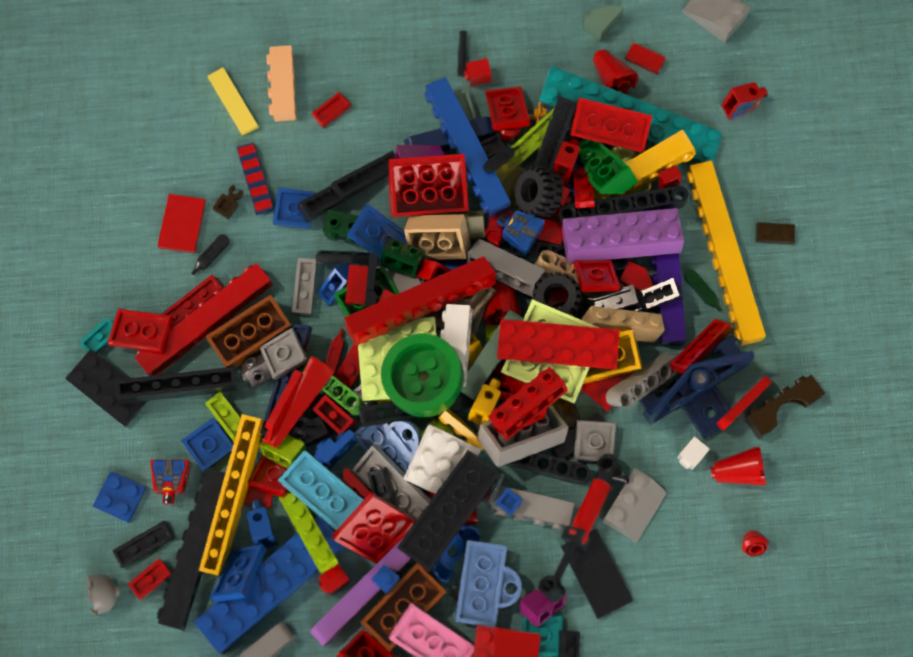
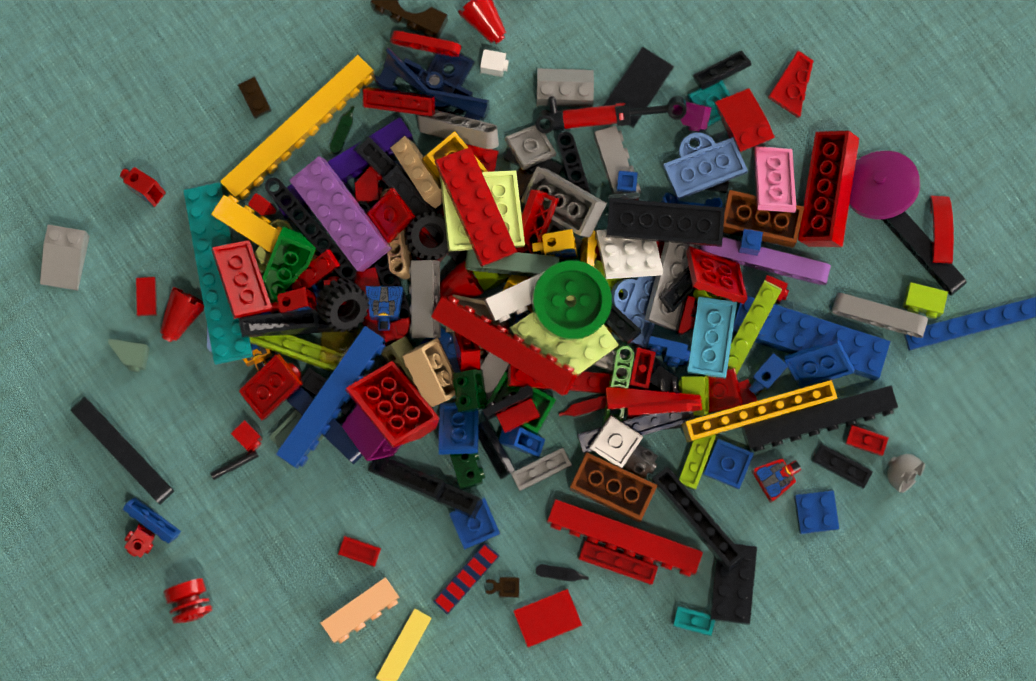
camera: 125 degrees left, 5 degrees up
(140, 330) = (669, 583): red tile -> none
(499, 159) = (329, 358): black piece -> none
(527, 403) = (542, 203): red brick -> none

